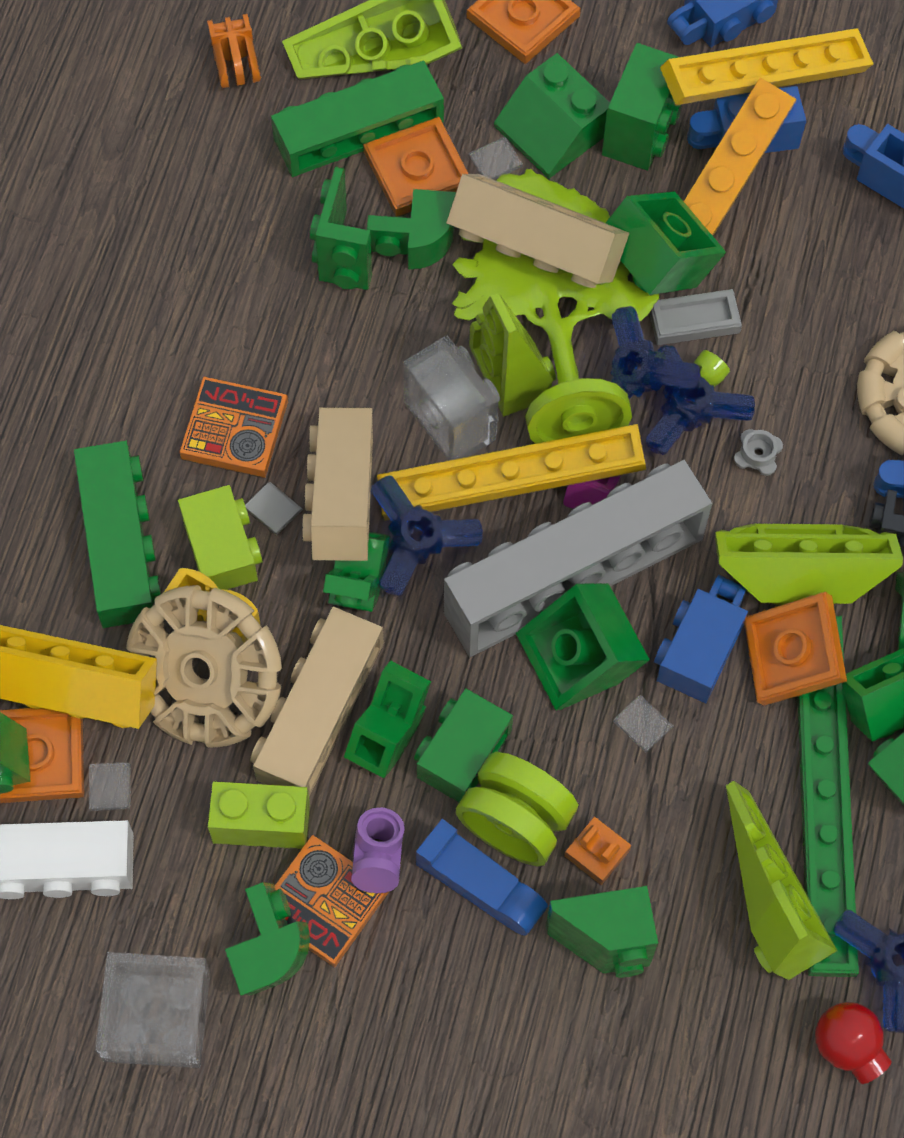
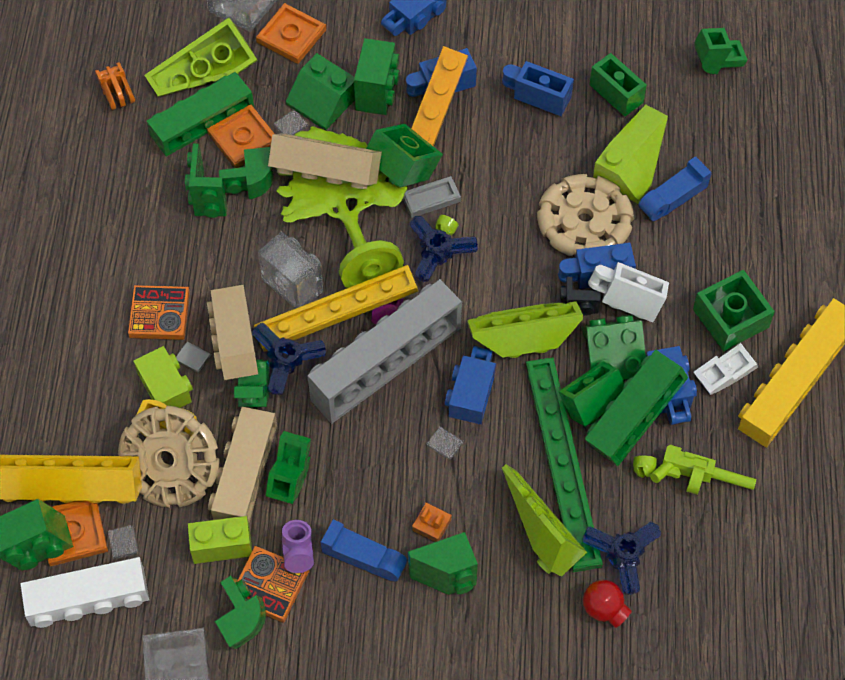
camera: 10 degrees left, 5 degrees down
(115, 532) = (97, 387): green brick -> none
(462, 744) = (338, 475): green brick -> none
(509, 356) = (321, 238): lime wedge -> none
(517, 808) = (377, 504): lime wheel -> none
(582, 644) = (399, 402): green slope -> none
(638, 352) = (405, 231): clear blue bush -> none
(761, 440) = (488, 263): light grey plate -> none
(778, 62) = (455, 36): yellow plate -> none
(795, 649) = (528, 380): orange tile -> none

